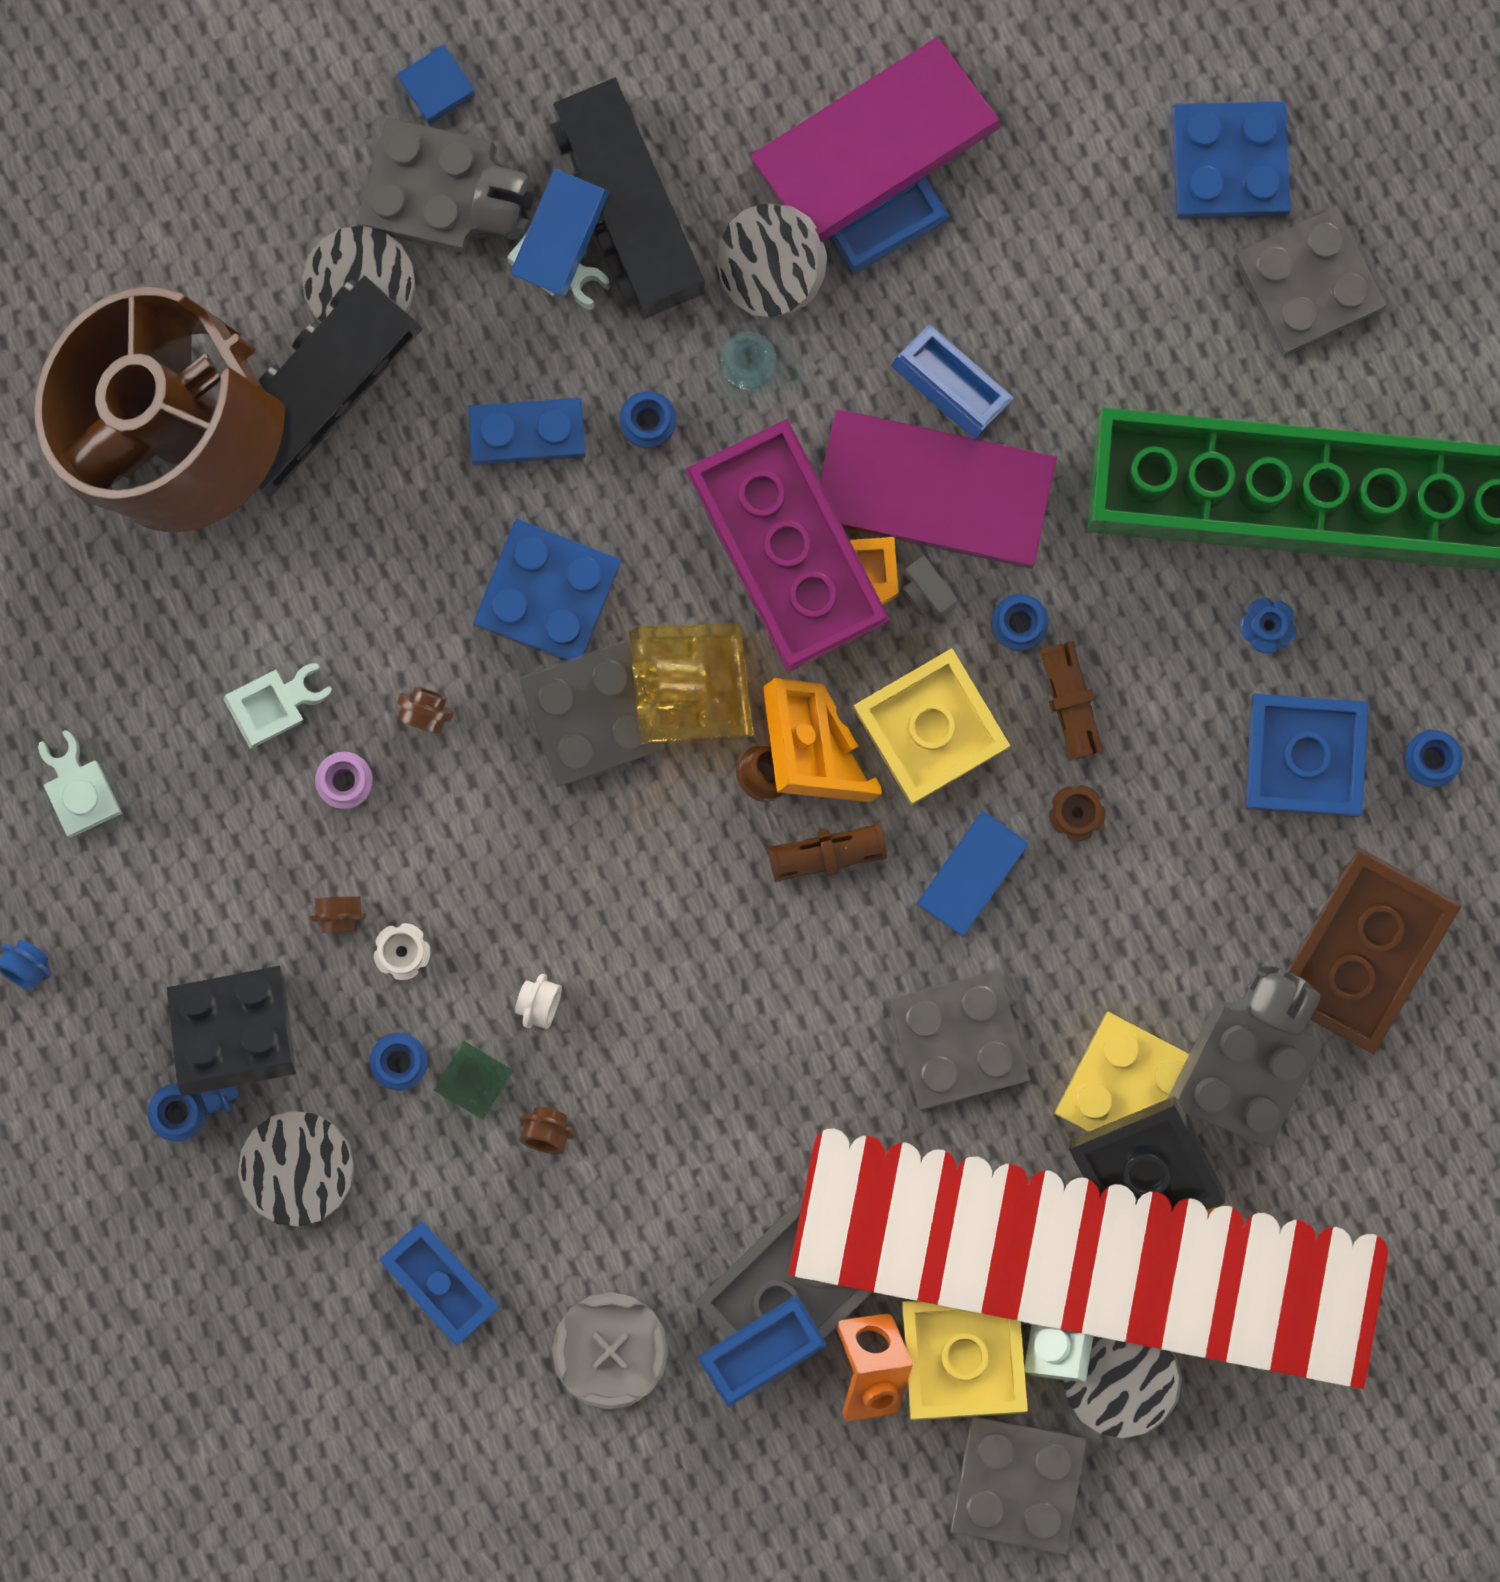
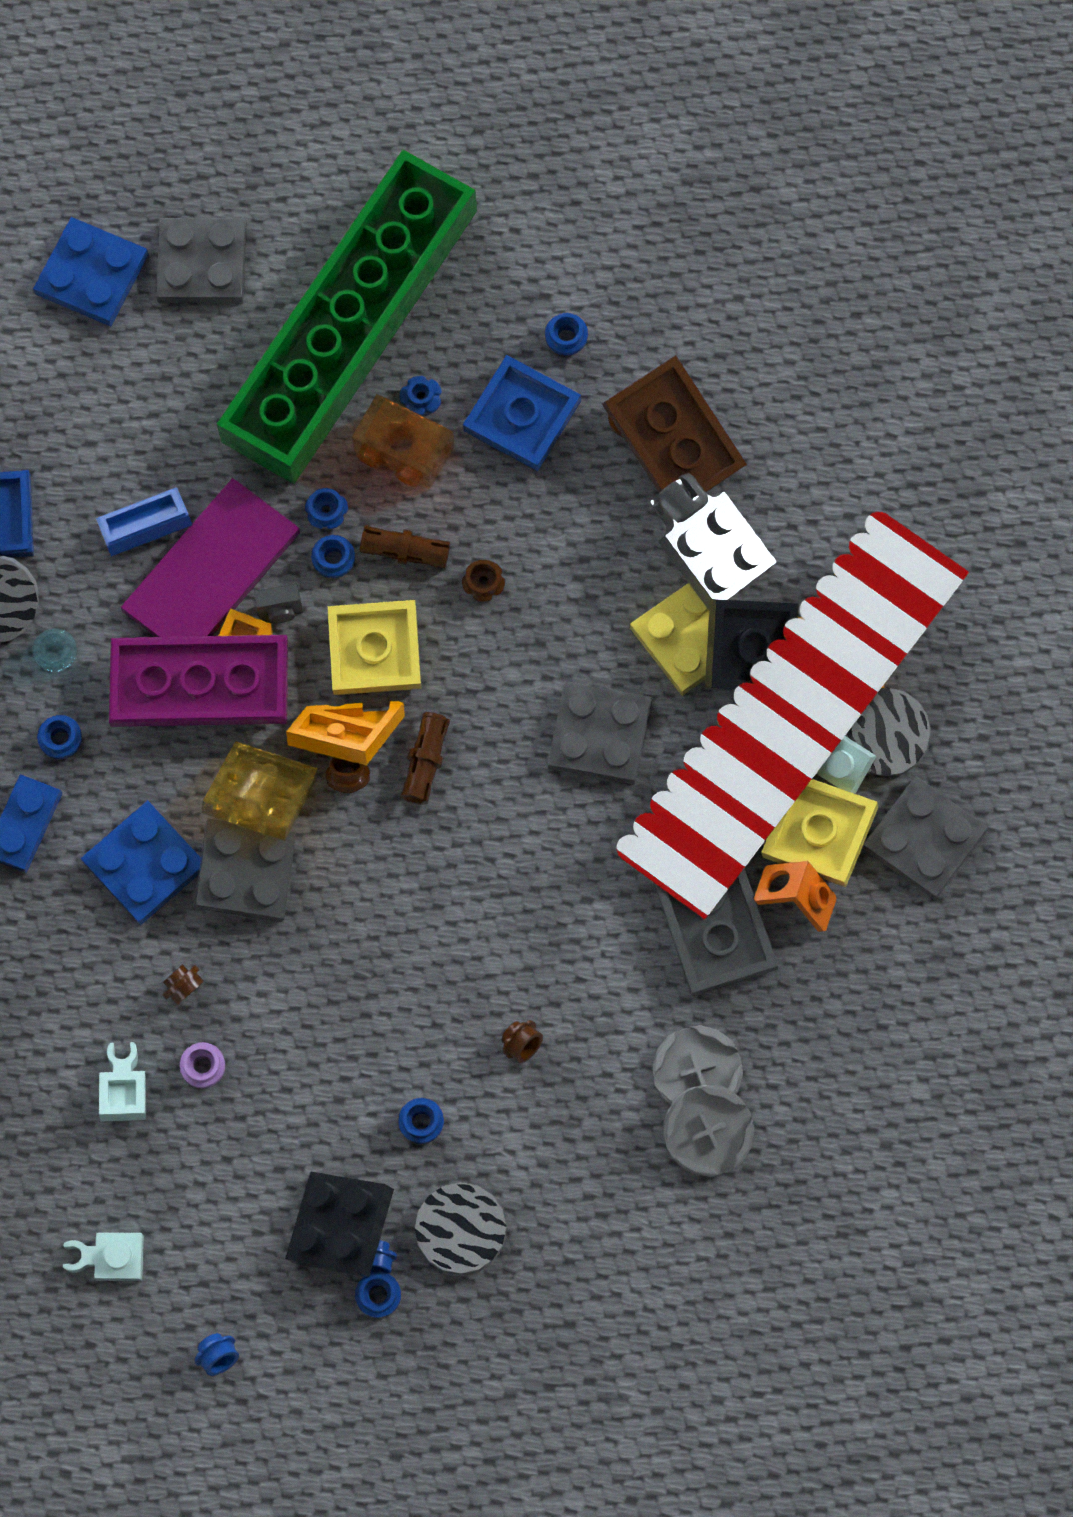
camera: 55 degrees left, 10 degrees down
(338, 913) = (294, 1112): reddish brown plate -> none
(417, 951) = (335, 1073): white plate -> none
(439, 1283) = (592, 1164): blue plate -> none
(473, 1080) = (460, 1073): clear green plate -> none
(538, 1002) = (428, 1003): white plate -> none
(543, 1398) = (708, 1130): none -> light grey tile
(762, 1351) = (748, 960): blue tile -> none
(972, 873) = (489, 669): blue tile -> none
(1074, 569) = (320, 499): none -> blue plate
(1214, 604) = (389, 422): none -> clear orange brick

